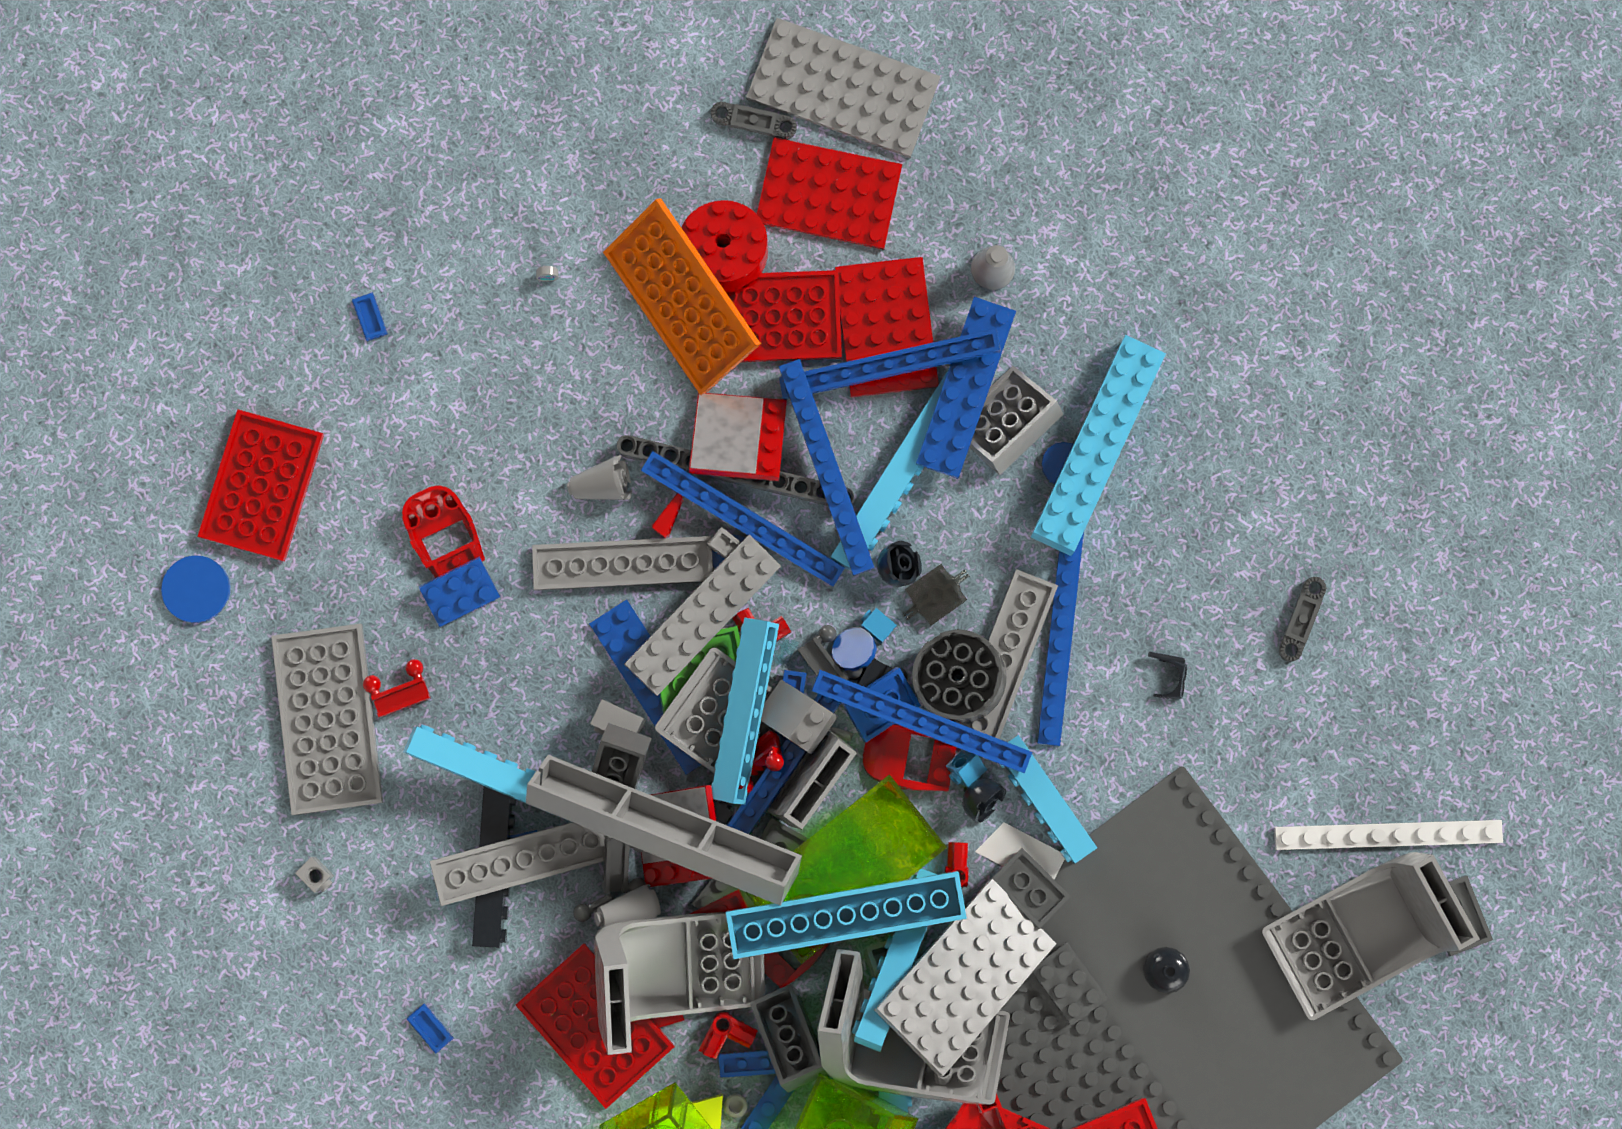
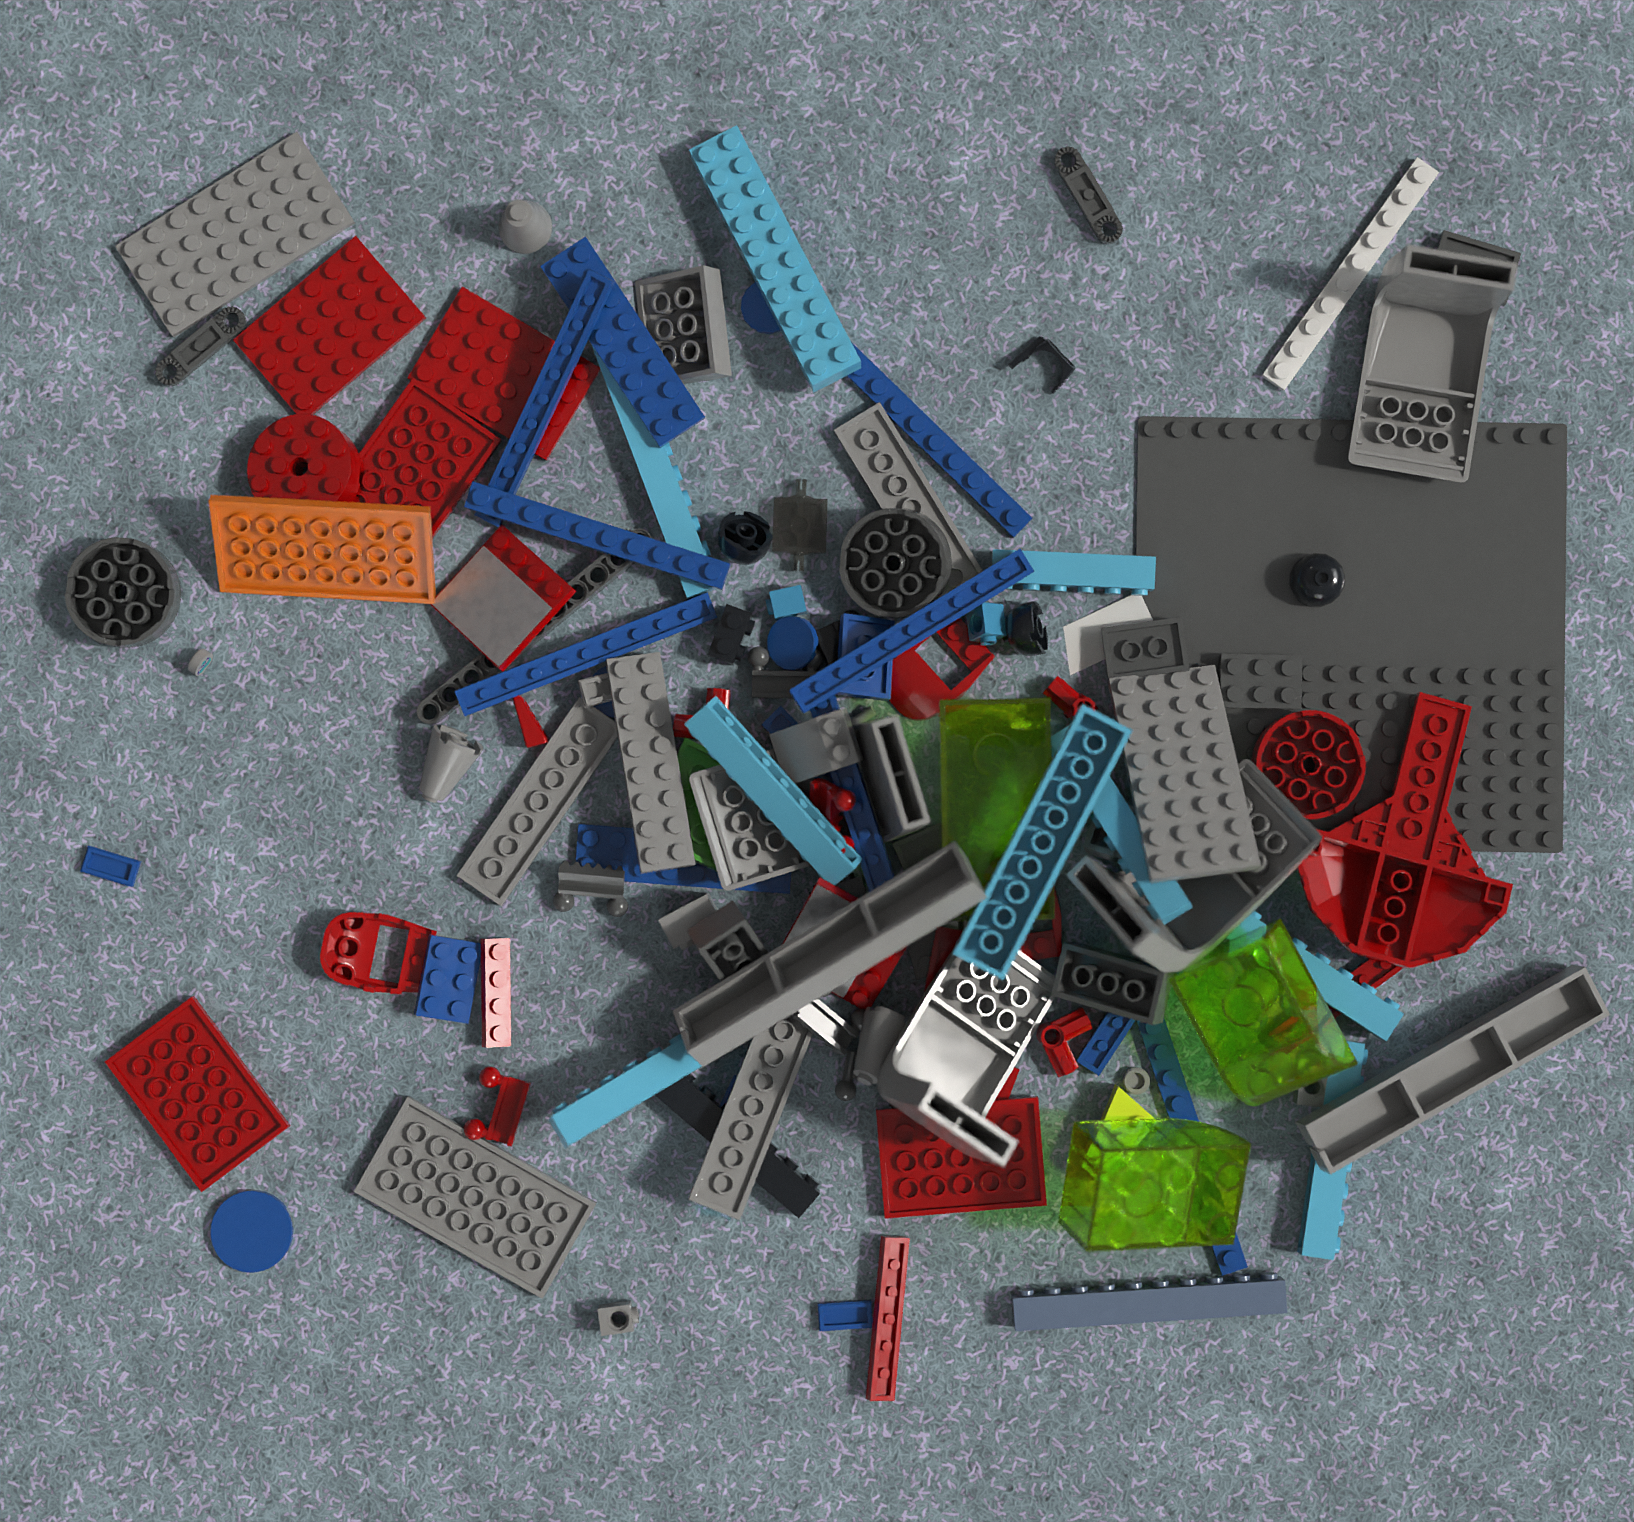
camera: 55 degrees left, 5 degrees up
(448, 1058) = (887, 1318): none -> plate
(473, 629) = (495, 992): none -> plate
(559, 212) = (150, 599): none -> dark grey brick
(594, 638) = (592, 883): none -> dark grey gear
(827, 604) = (730, 635): none -> black brick
(1062, 1063) = (1336, 758): none -> red brick

